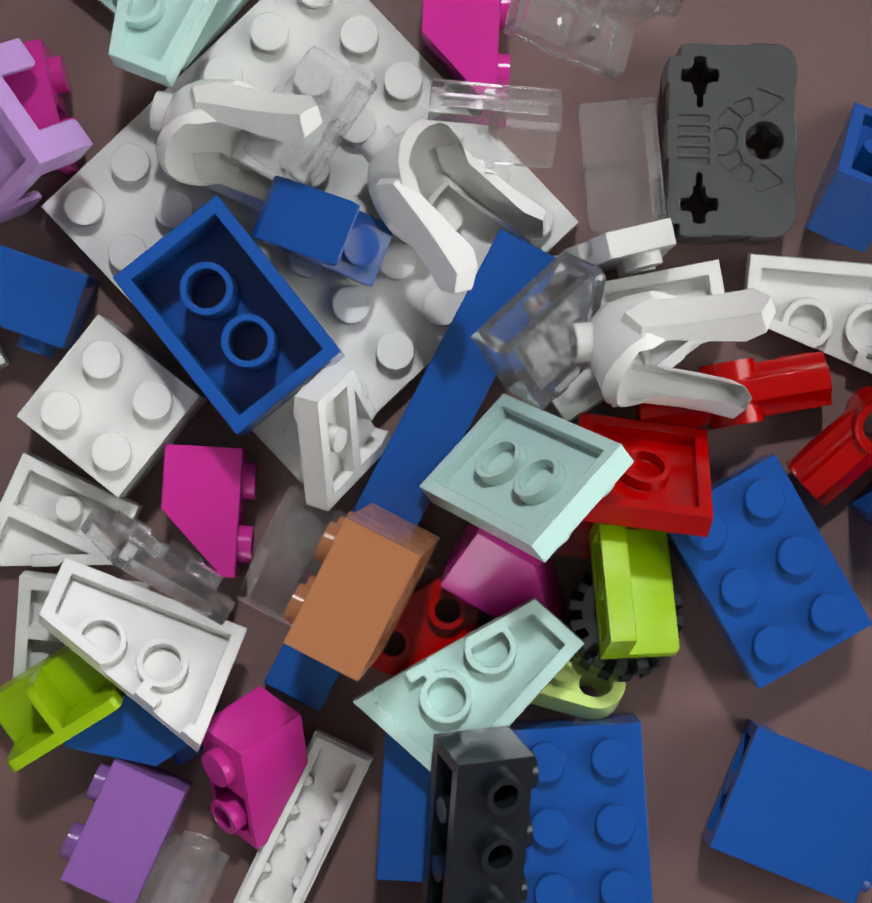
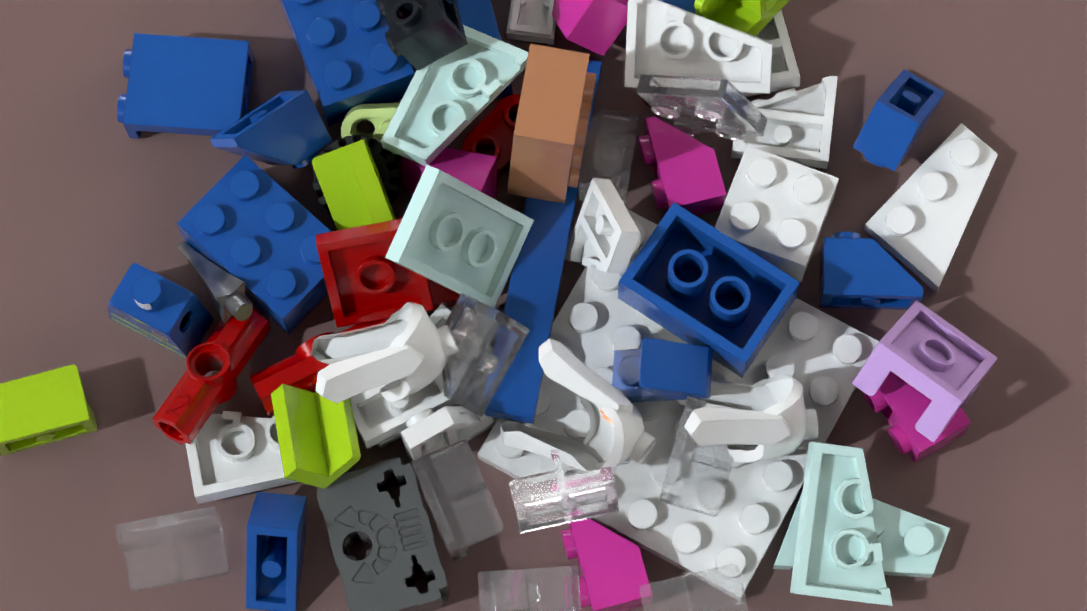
camera: 170 degrees right, 15 degrees down
(709, 710) = (277, 132): none -> blue slope
(795, 271) = (314, 436): none -> lime panel
(837, 521) = (223, 288): none -> flat silver piece

